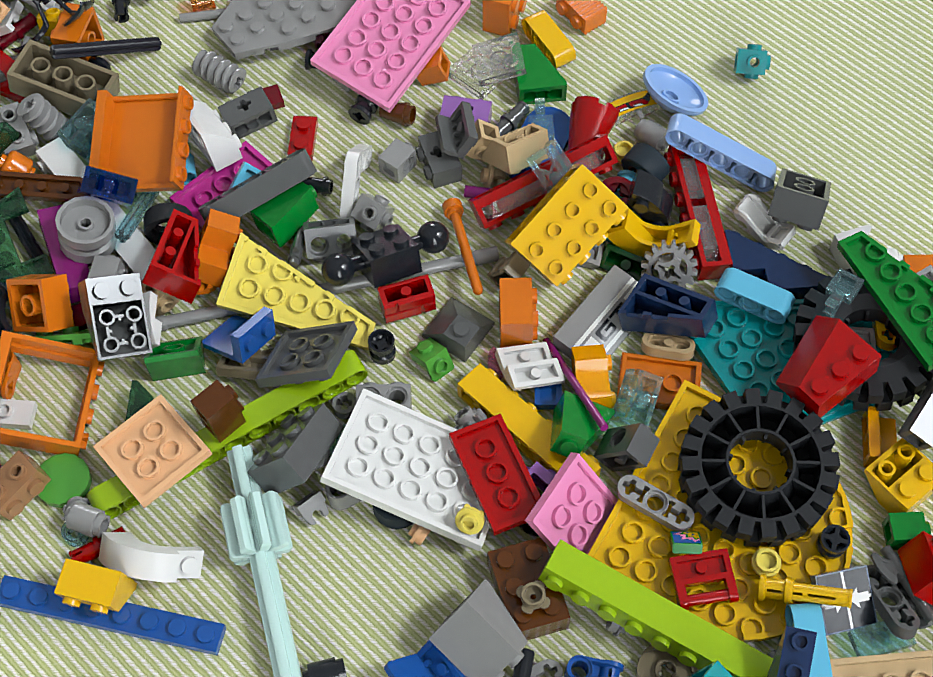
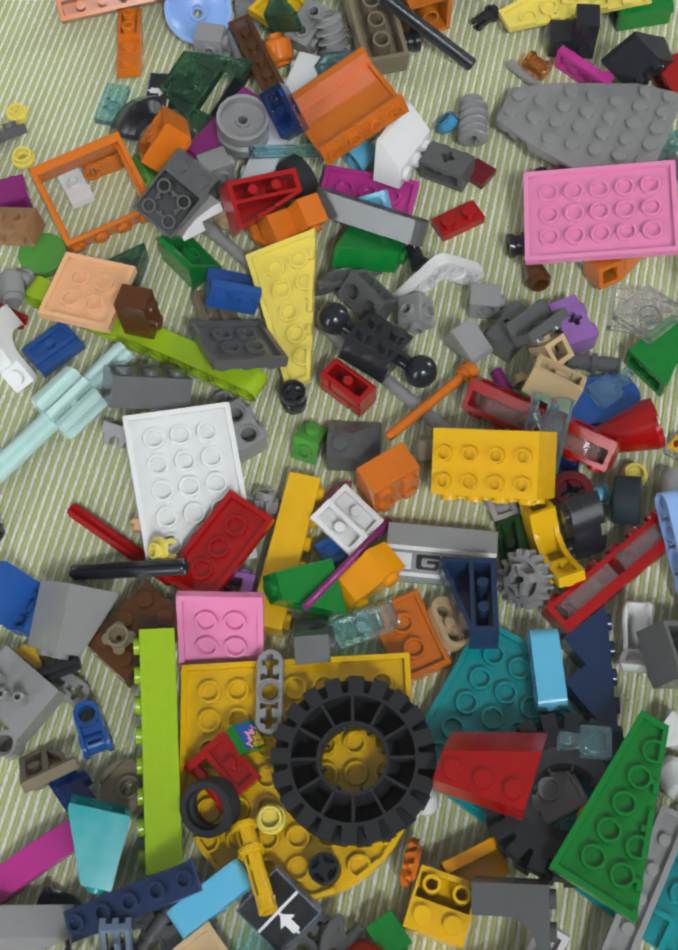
camera: 60 degrees right, 5 degrees up
(178, 519) = (53, 348): none -> blue plate
(203, 90) = (446, 122): none -> dark azure tile
(417, 566) = (108, 535): none -> red axle
(428, 190) = (468, 342): none -> light grey slope
(465, 560) = (129, 569): none -> black axle
(749, 616) = (190, 812): none -> black tyre
(856, 479) = (410, 862): none -> orange gear

